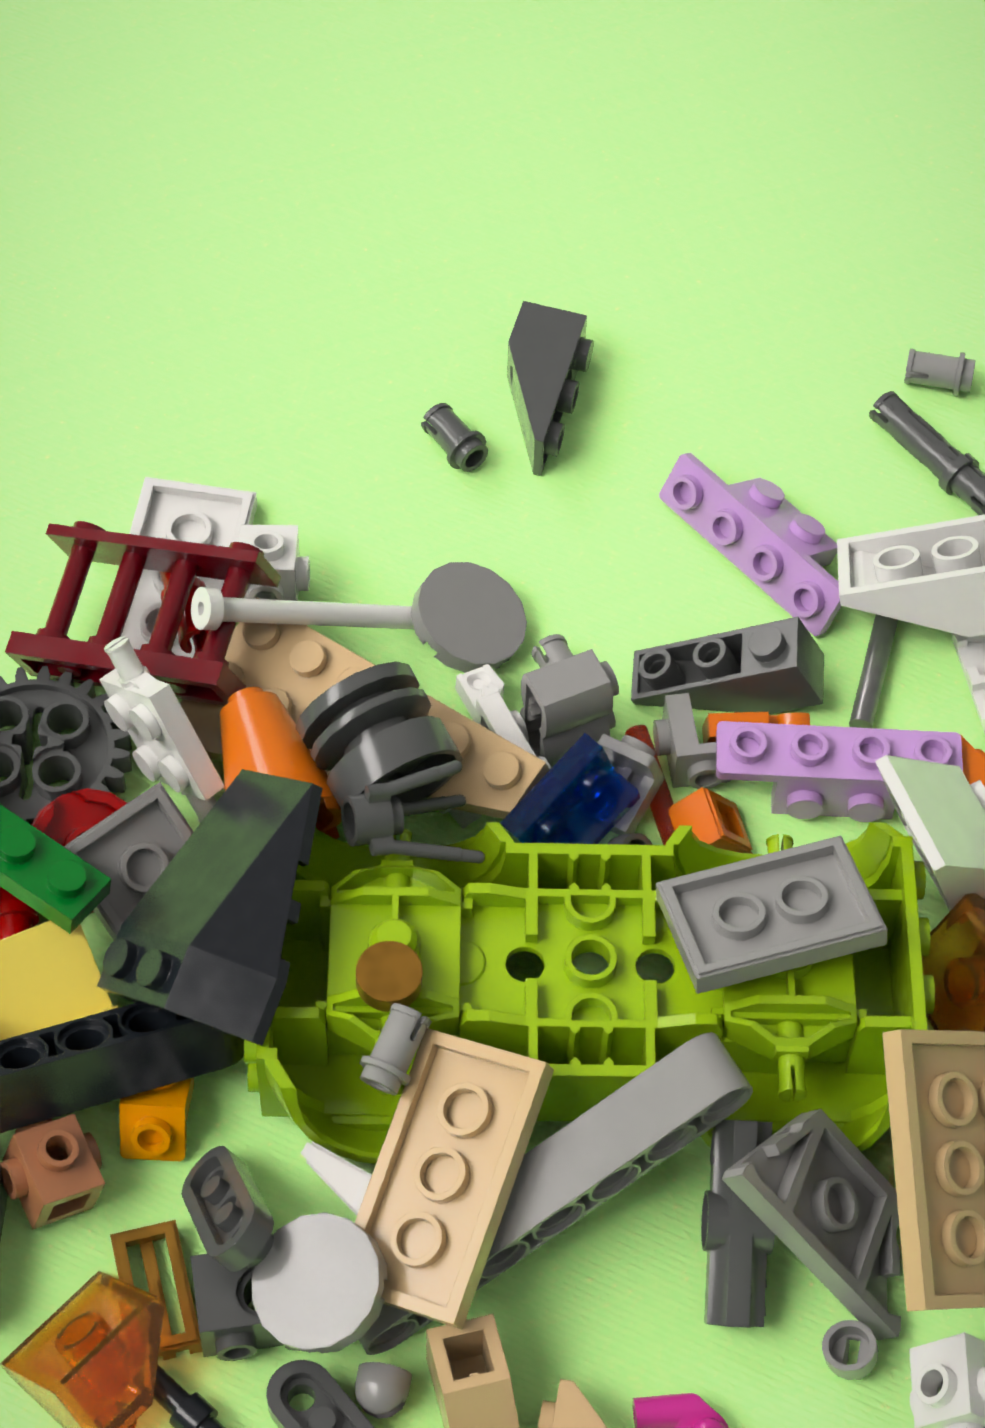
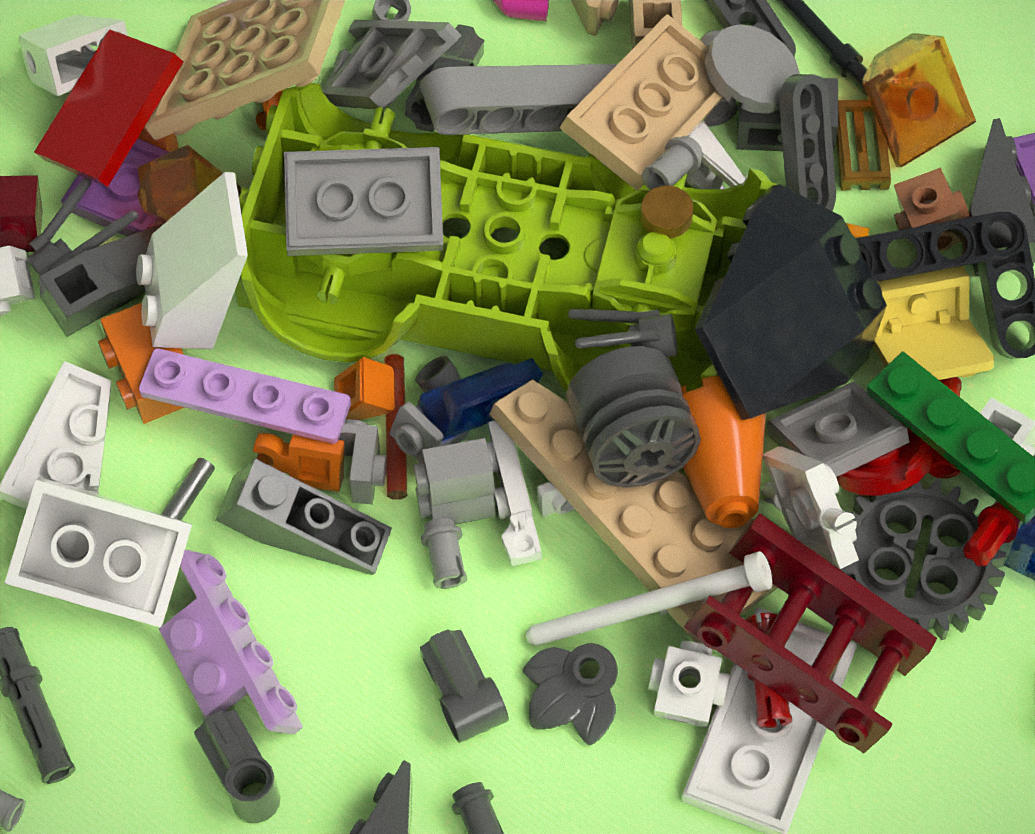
camera: 165 degrees left, 5 degrees up
(385, 569) = (567, 695): none -> dark grey plate
(468, 616) = (515, 612): light grey tile -> none
(498, 534) = (467, 697): none -> dark grey piece
(696, 426) = (239, 765): none -> dark grey piece

